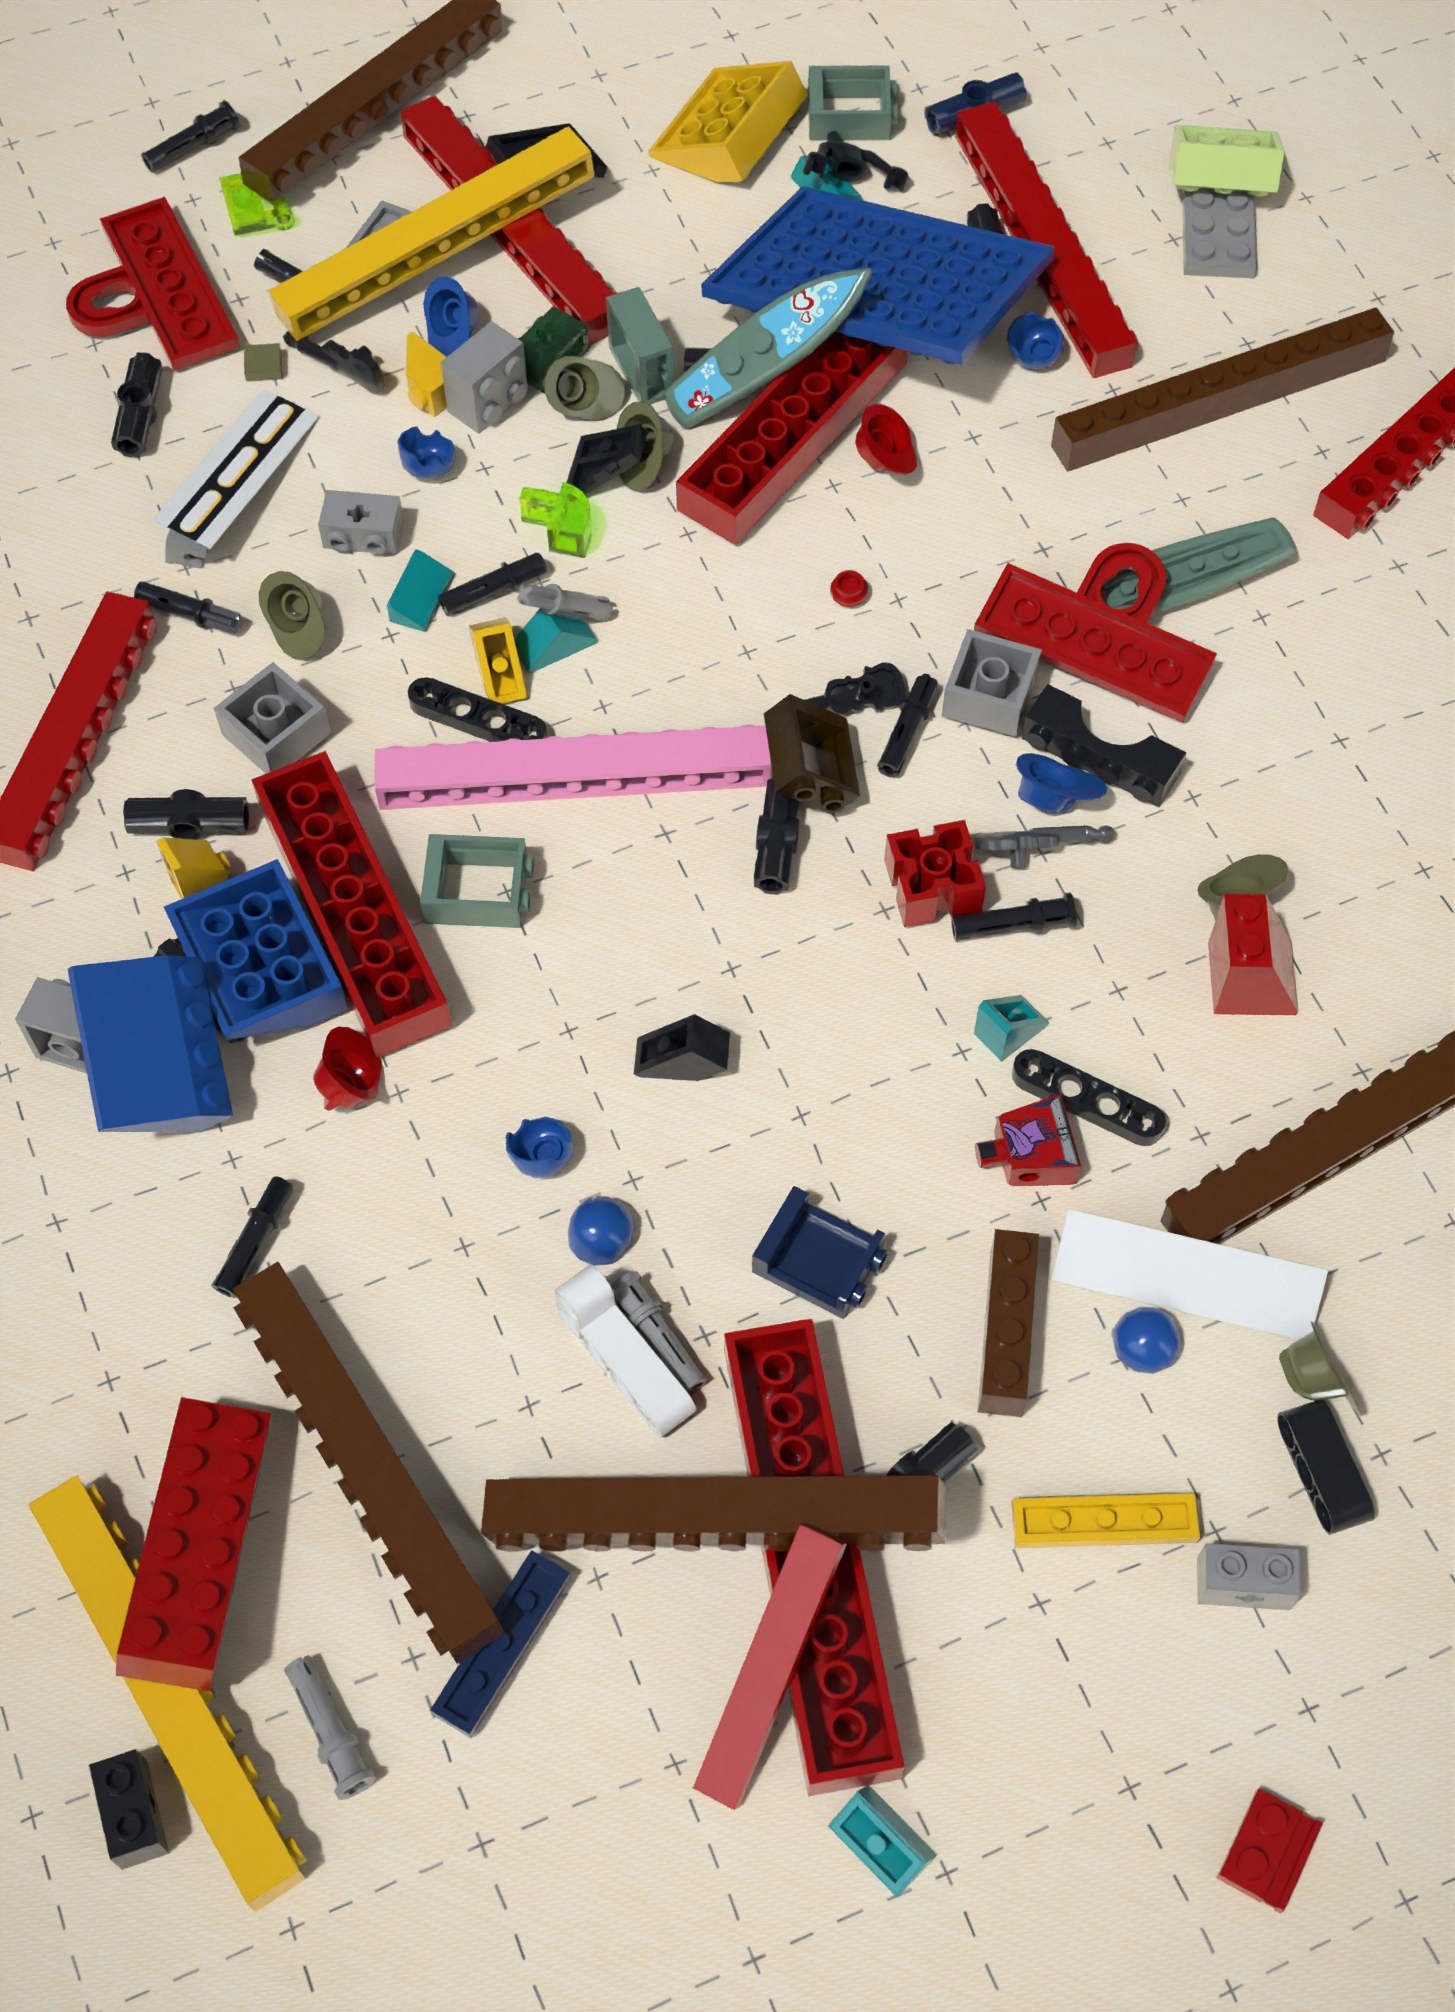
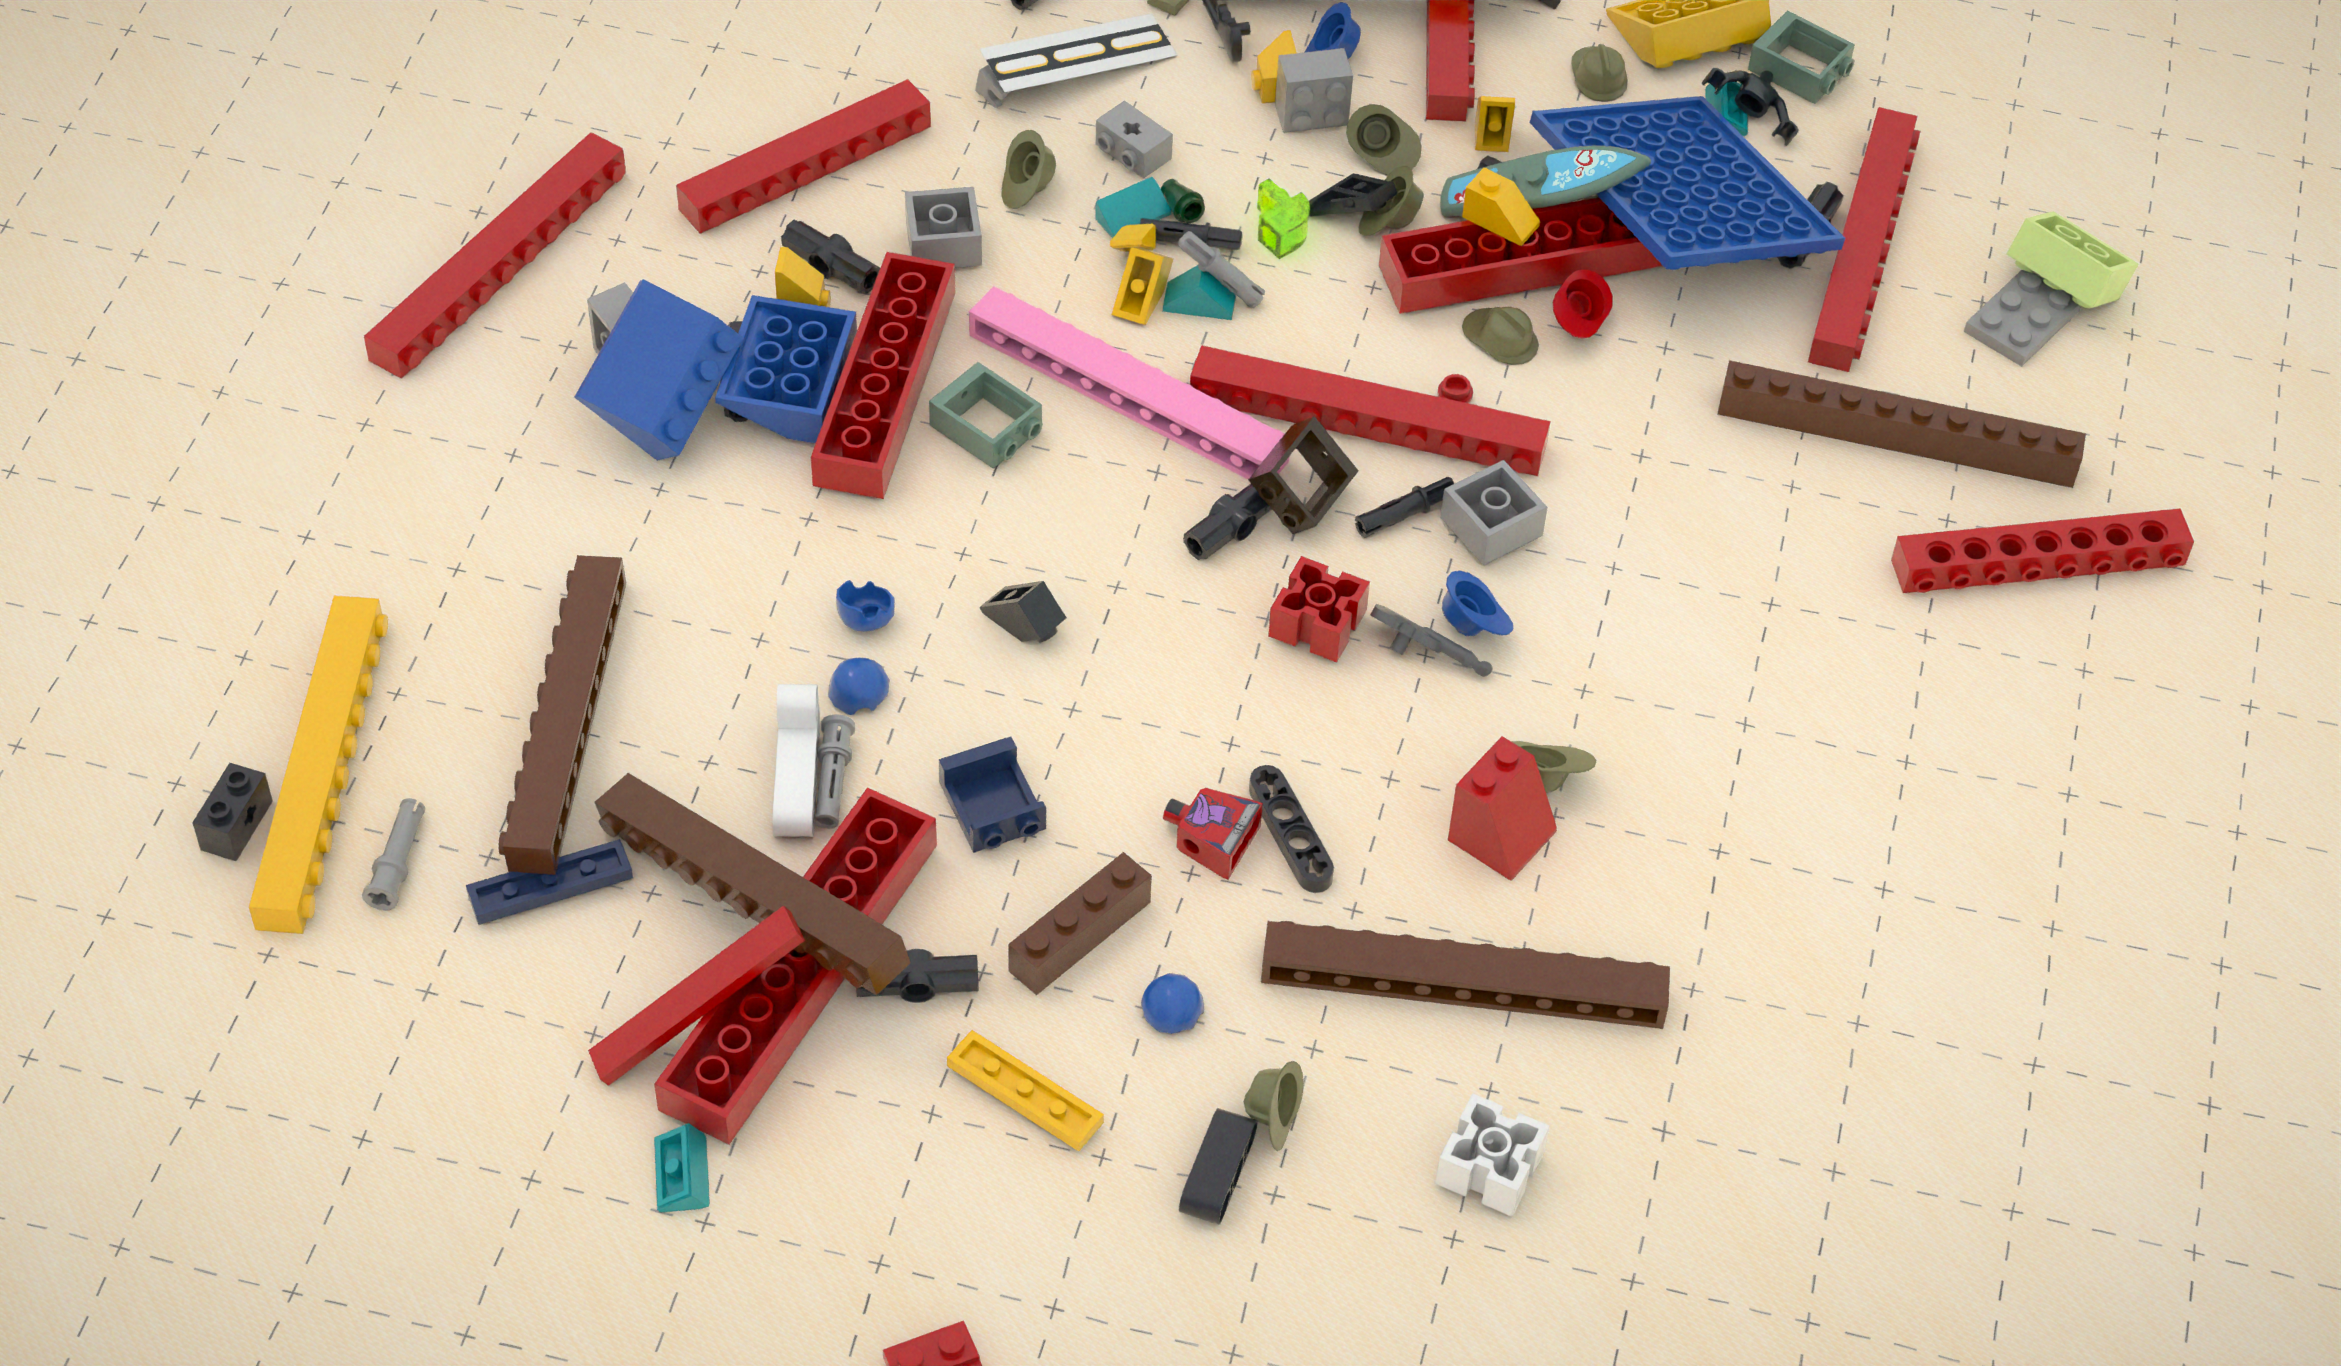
camera: 35 degrees right, 10 degrees down
(193, 1545) = (409, 682): red brick -> none
(201, 612) = (965, 133): black axle -> none
(253, 1236) = (632, 537): black axle -> none
(347, 1070) = (782, 476): red piece -> none
(425, 454) = (1223, 120): blue hair -> none
(450, 618) = (1135, 236): none -> yellow slope
(458, 555) = (1184, 202): none -> dark green cone
(474, 720) = (1089, 316): black beam -> none
(550, 339) = (1395, 91): clear green brick -> none
(639, 345) = (1451, 131): sand green window -> none
(668, 306) = (1494, 123): none -> yellow slope
(695, 213) = (1599, 73): none -> olive piece
(759, 392) = (1499, 207): none -> yellow slope
(797, 654) = (1372, 410): none -> brick
(836, 508) = (1502, 333): none -> olive piece
(877, 688) = (1404, 468): black piece -> none
(1004, 91) = (1931, 114): dark blue piece -> none
(1007, 1024) = (1279, 741): teal slope -> none
(1034, 916) = (1370, 686): black pin -> none
(1035, 341) = (1776, 303): blue hair -> none
(1099, 641) = (1611, 538): red plate -> none
(1140, 768) = (1557, 641): black arch -> none
(1189, 1275) = (1242, 980): white sticker -> none
(1207, 563) = (1730, 531): sand green piece -> none
(1248, 1576) = (1087, 1189): light grey brick -> none

